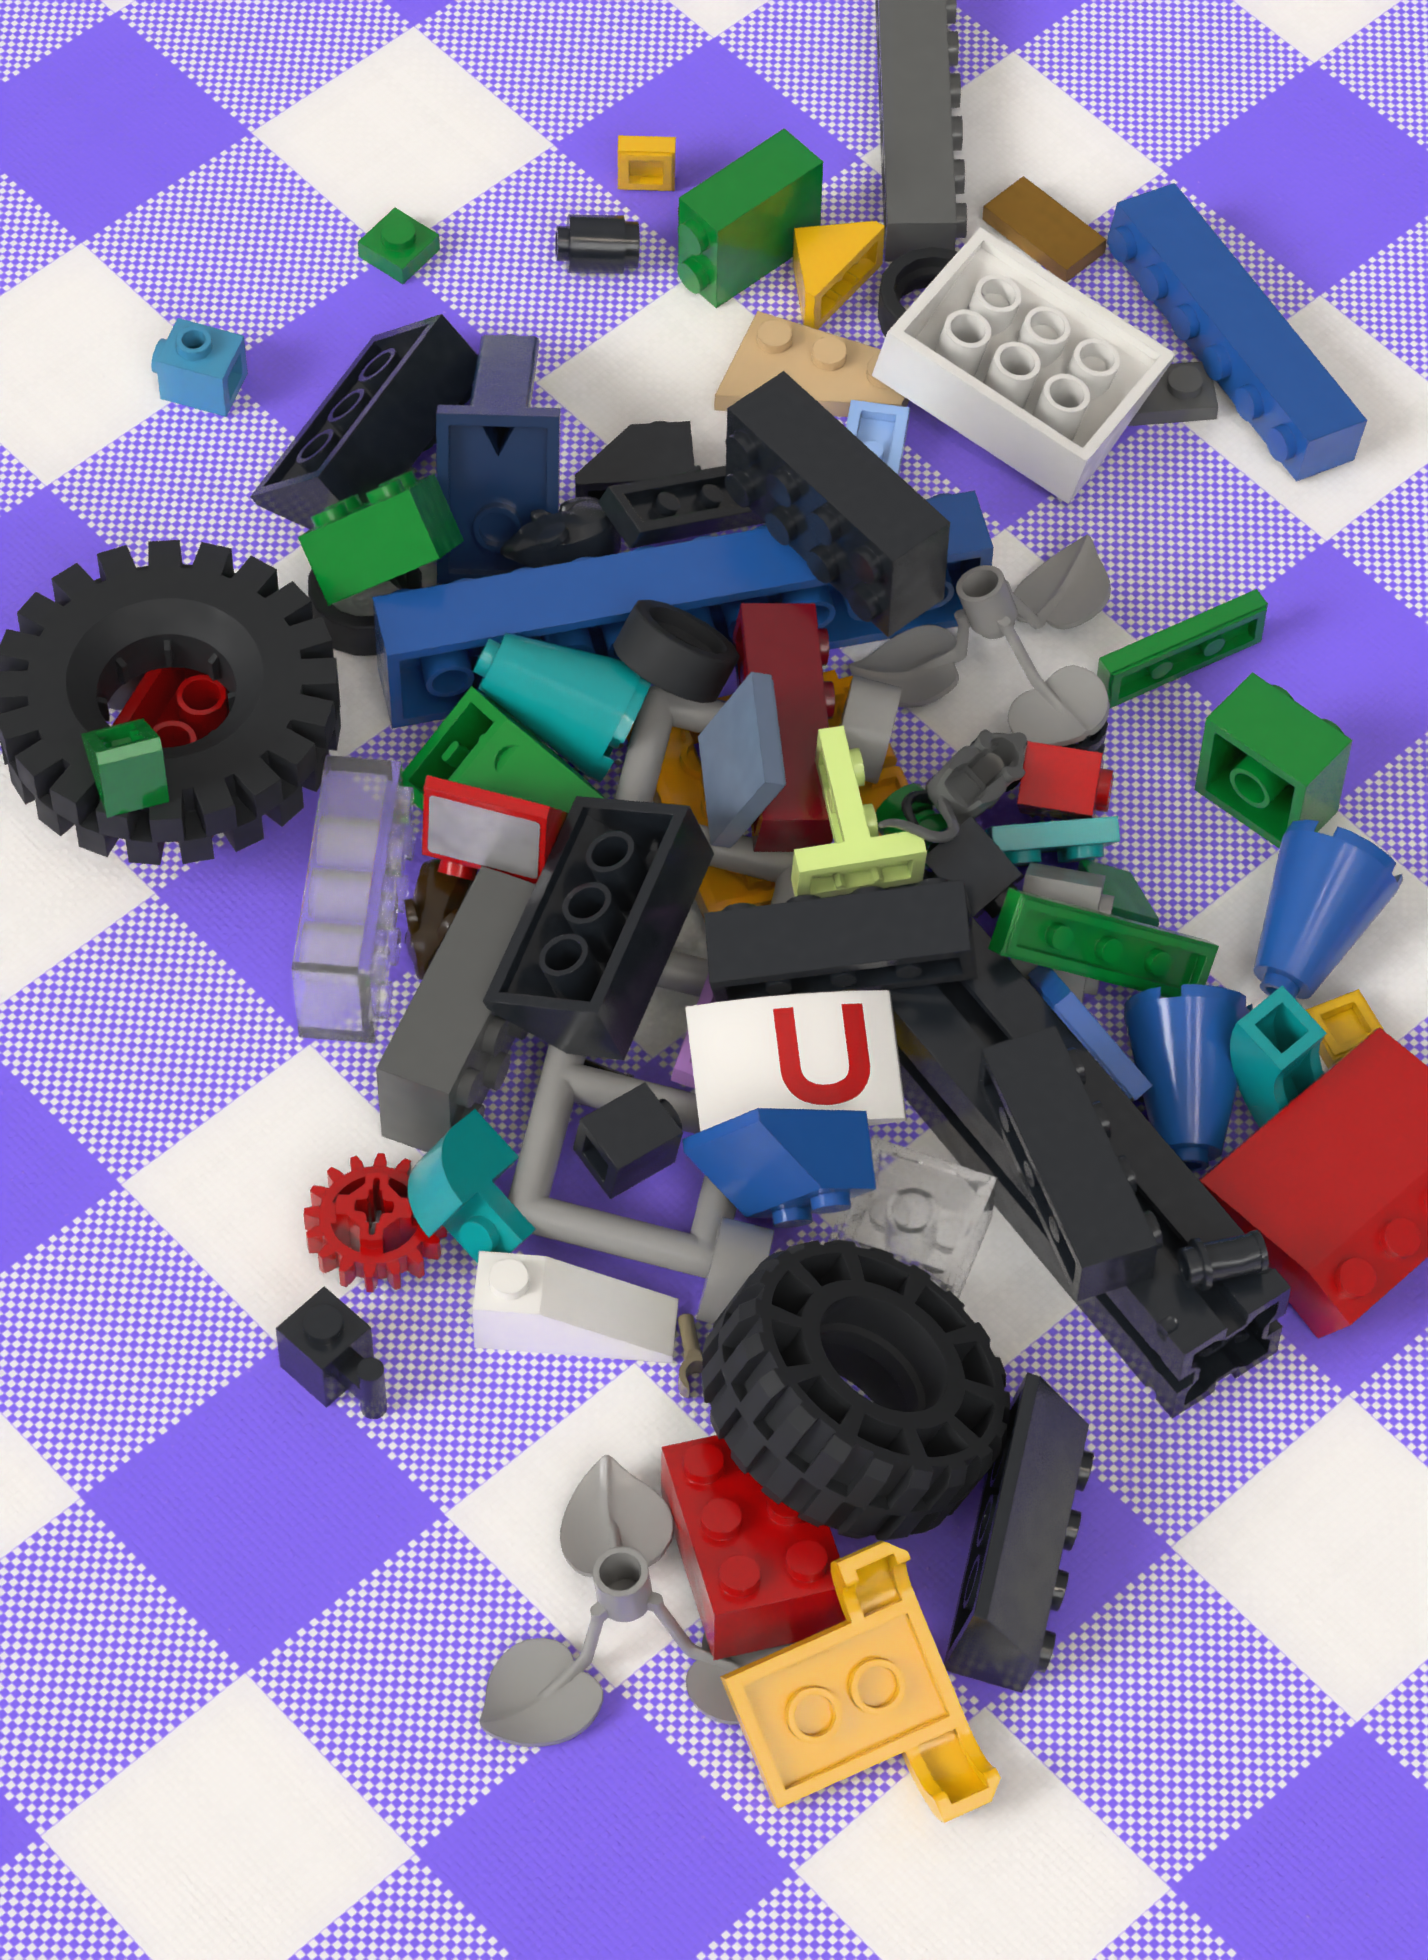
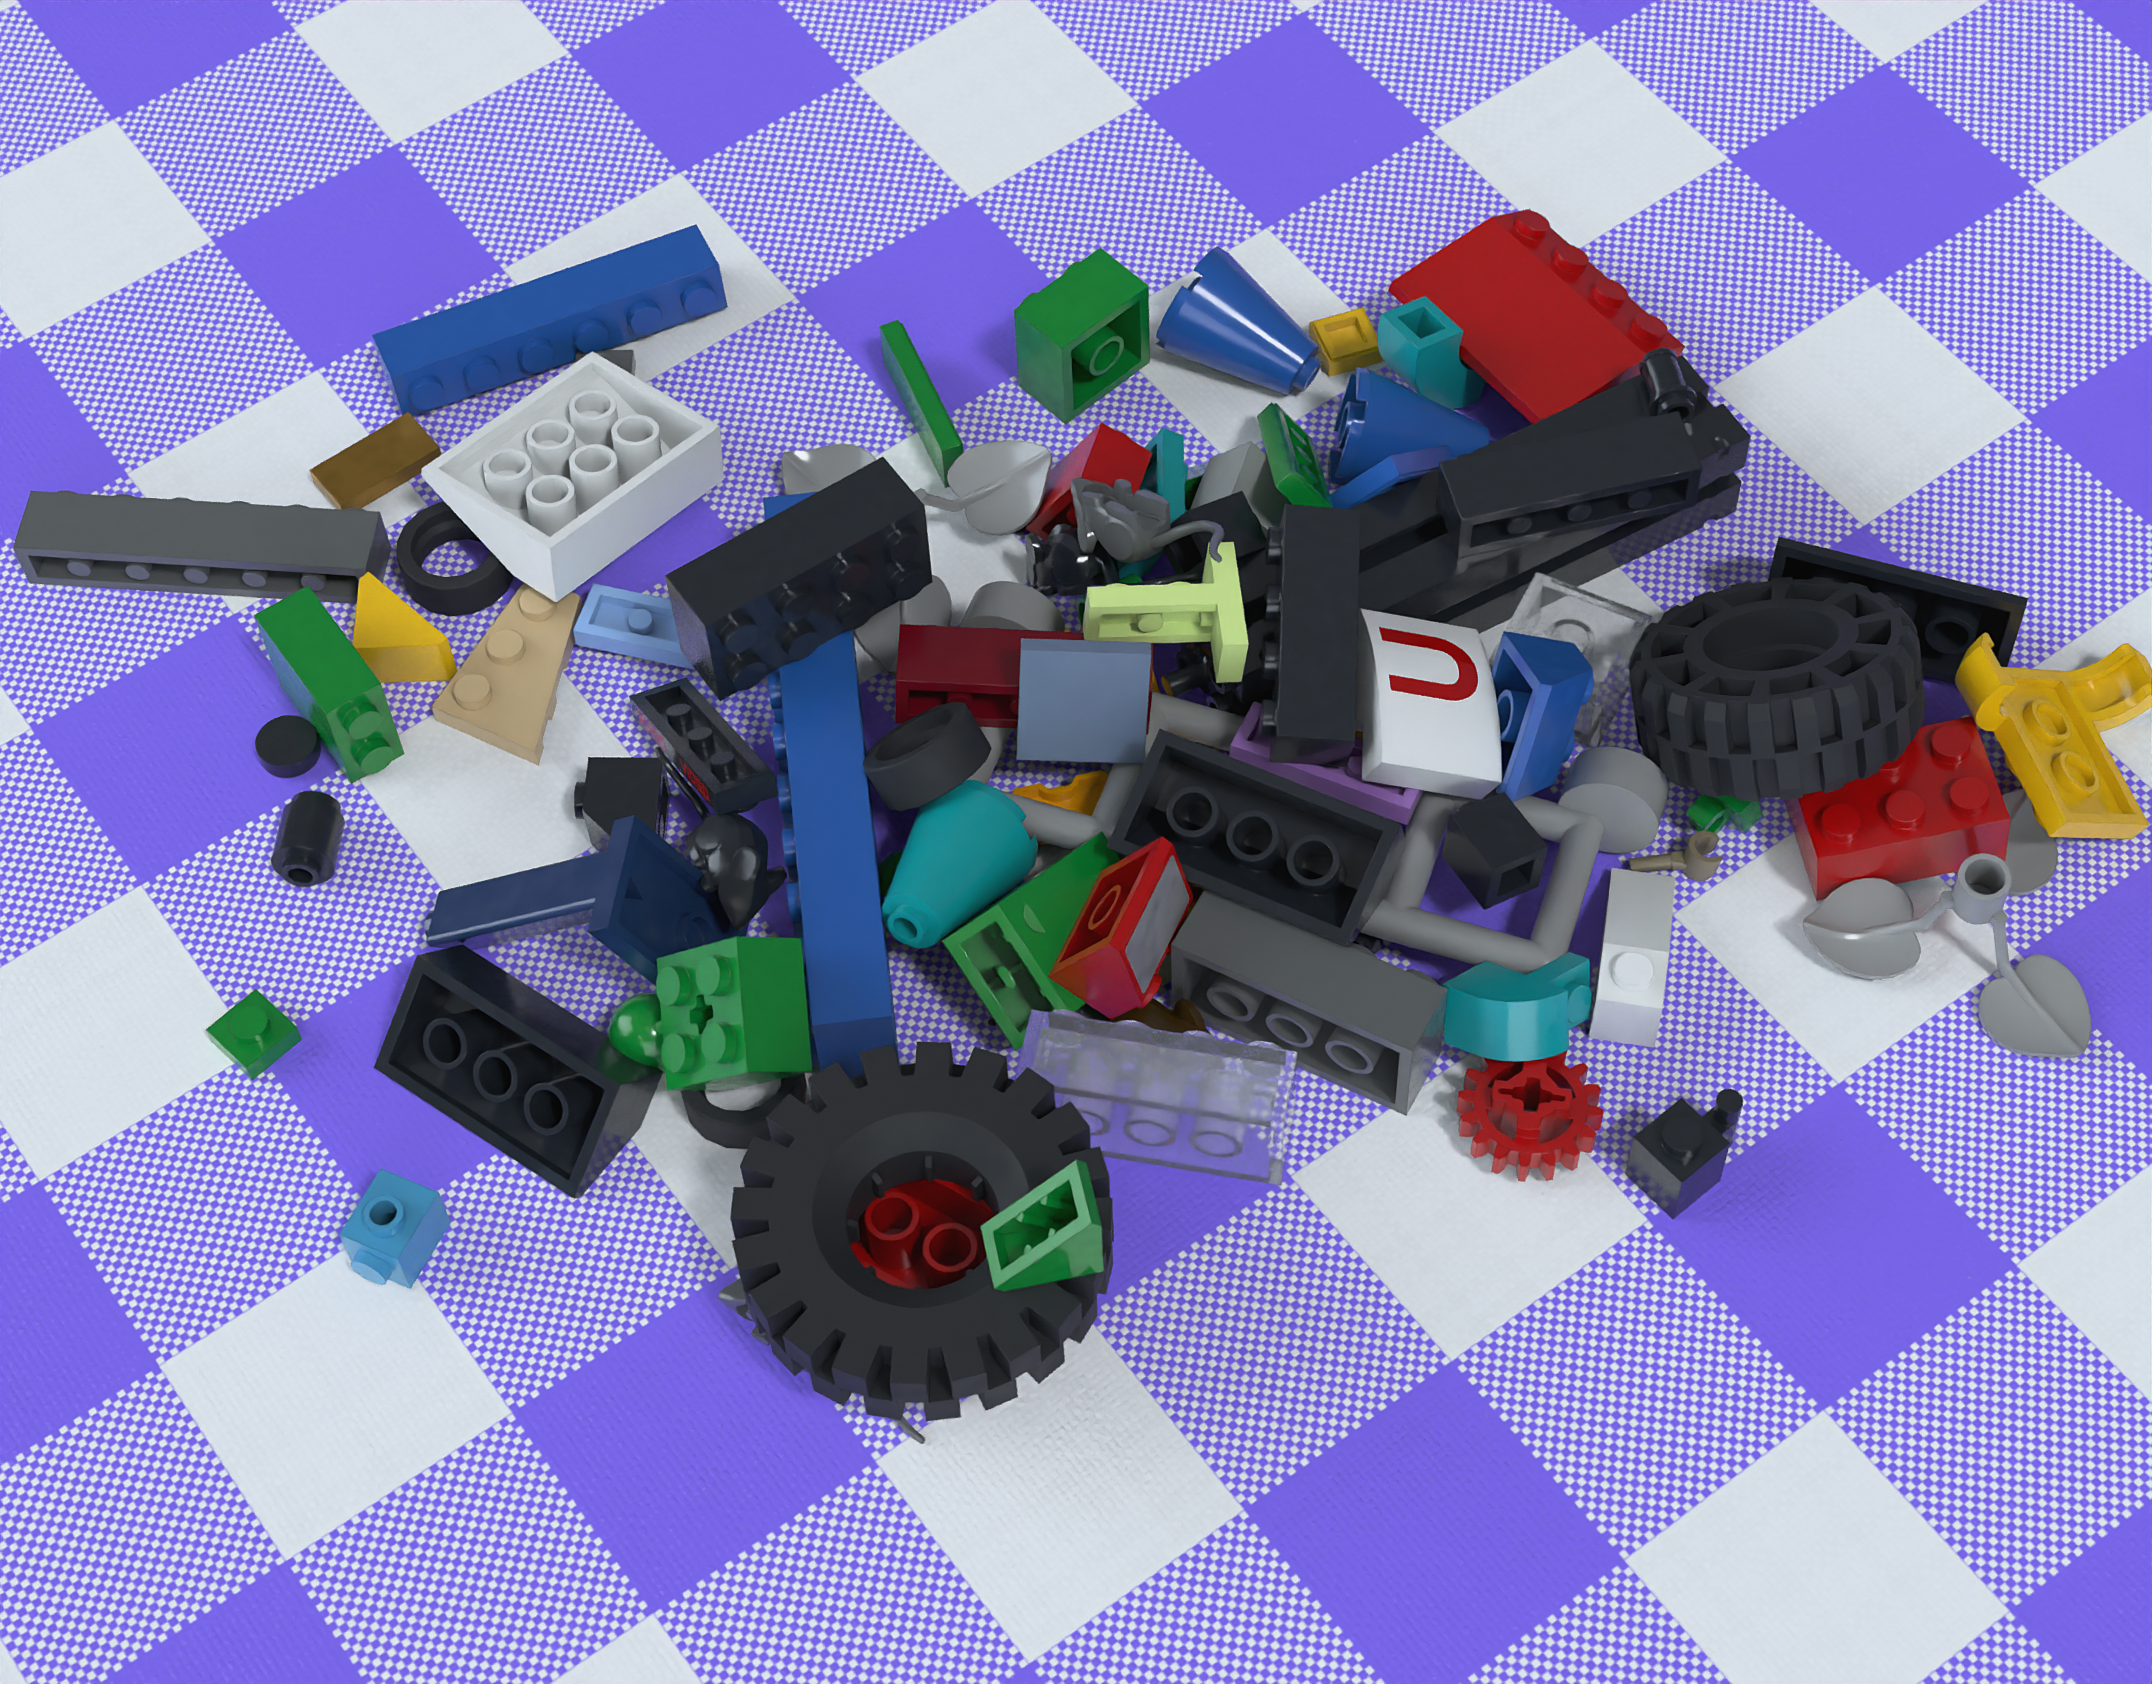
camera: 80 degrees left, 0 degrees up
(646, 163) = (210, 786): yellow tile -> none

